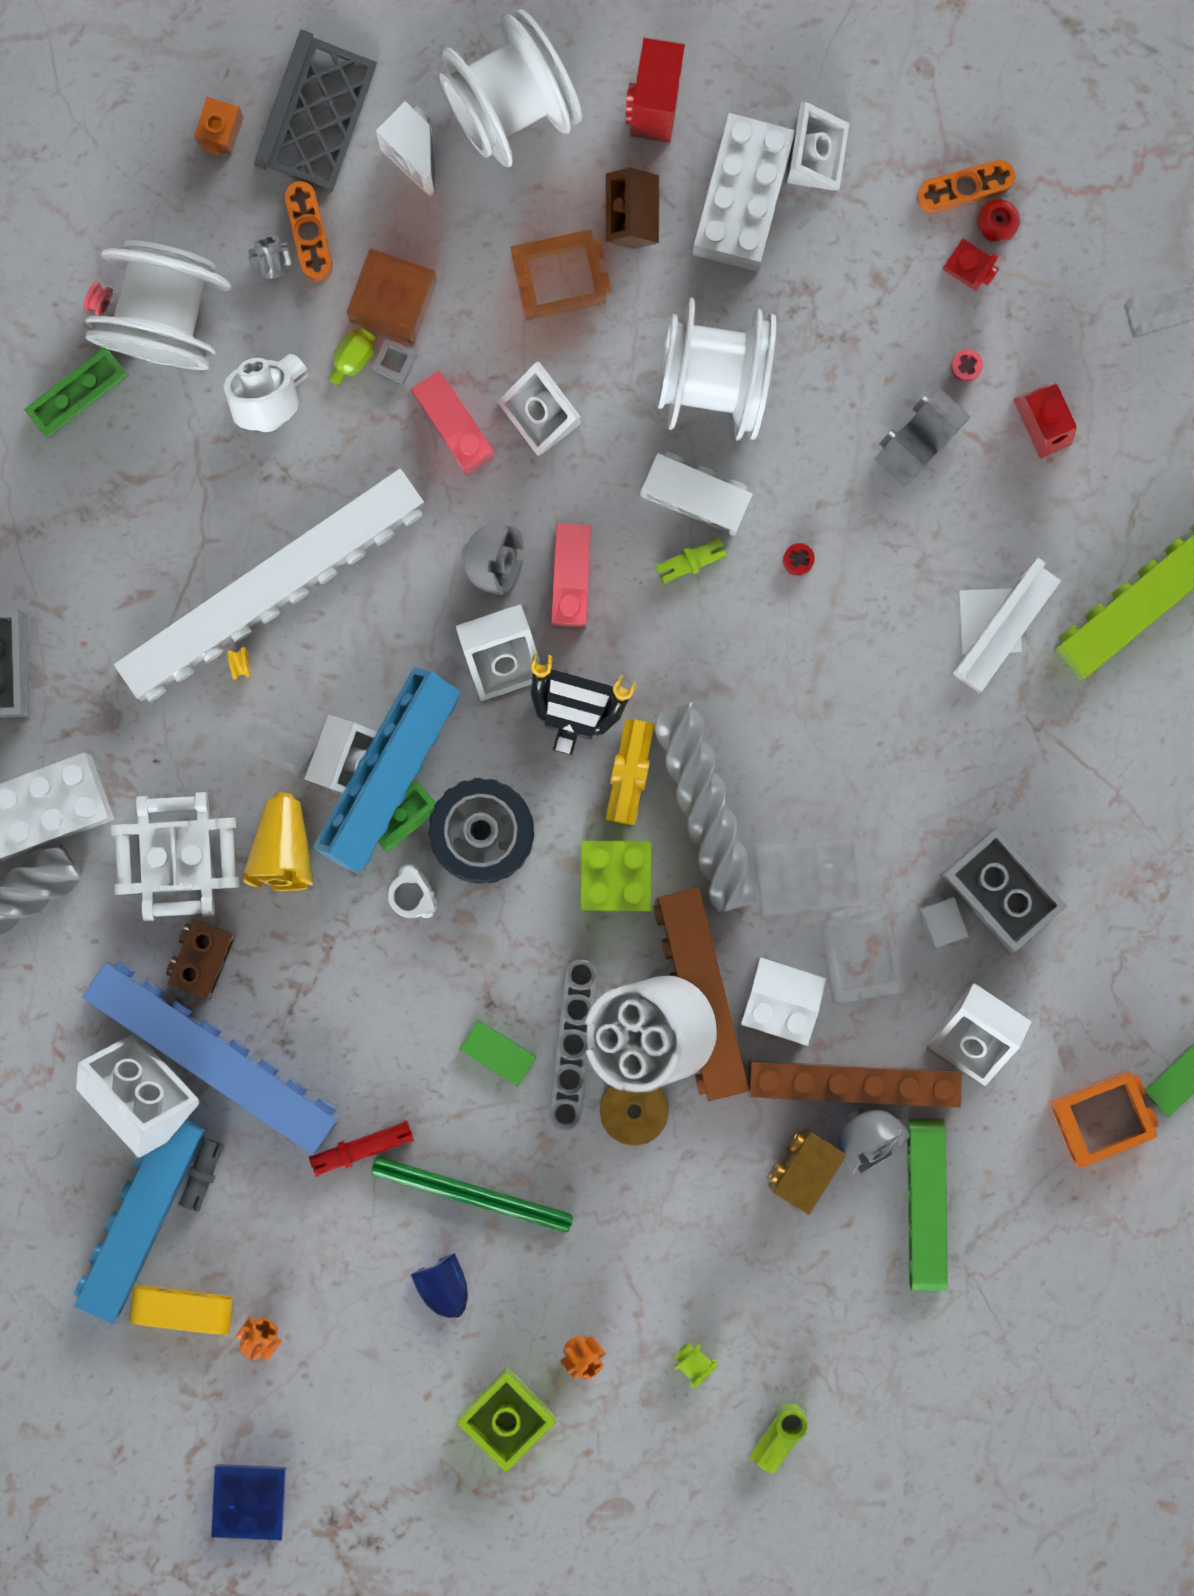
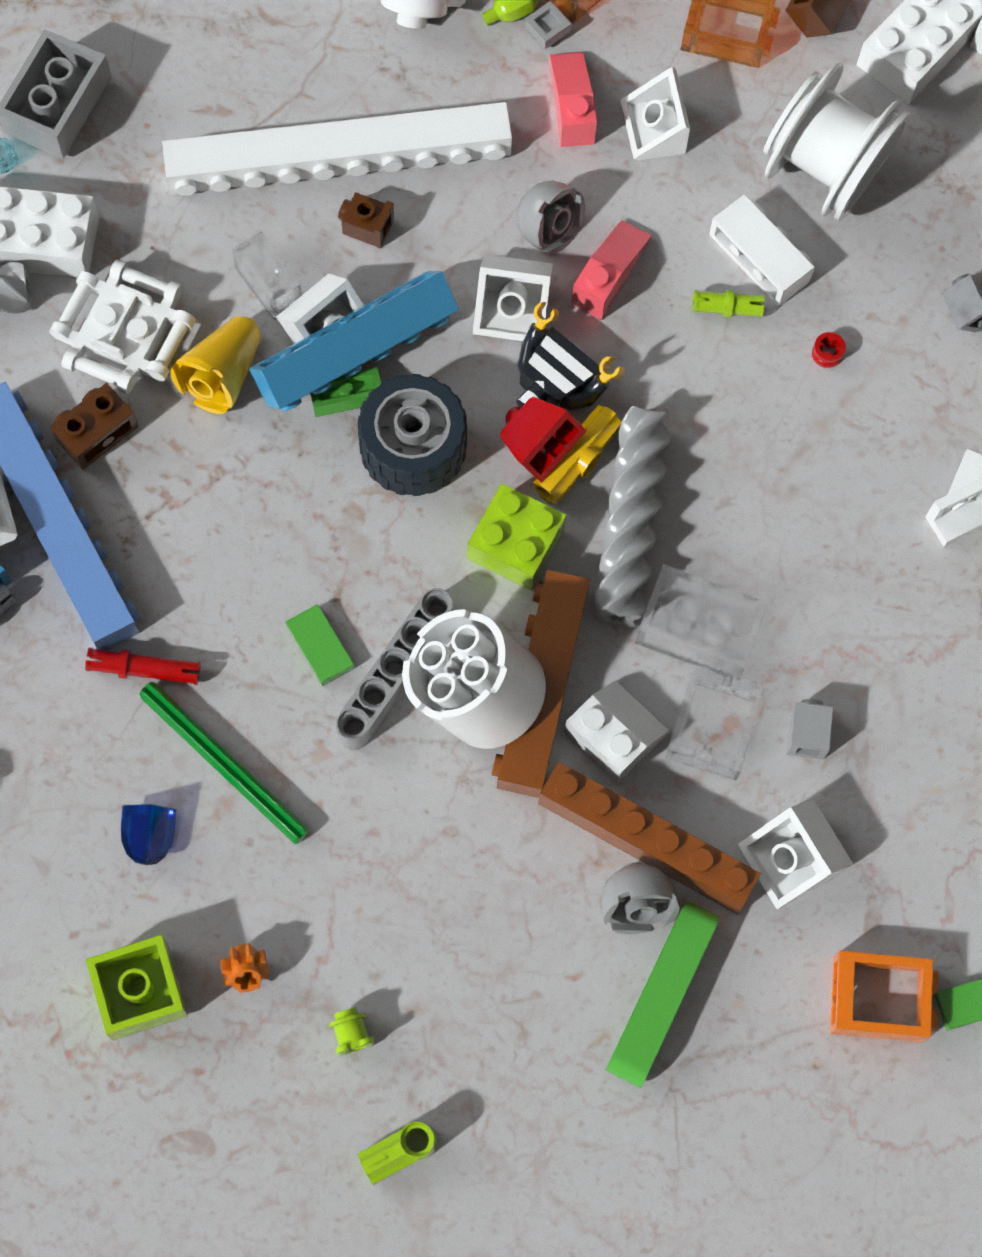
camera: 30 degrees right, 15 degrees down
(239, 663) = (273, 198): yellow bush -> none
(342, 648) = (374, 222): none -> reddish brown brick
(427, 904) = (328, 447): white piece -> none
(591, 779) = (540, 435): none -> red torso
(629, 1129) = (423, 780): pearl gold plate -> none
(805, 1170) = (559, 891): pearl gold brick -> none
(1003, 890) = (884, 725): light grey brick -> none

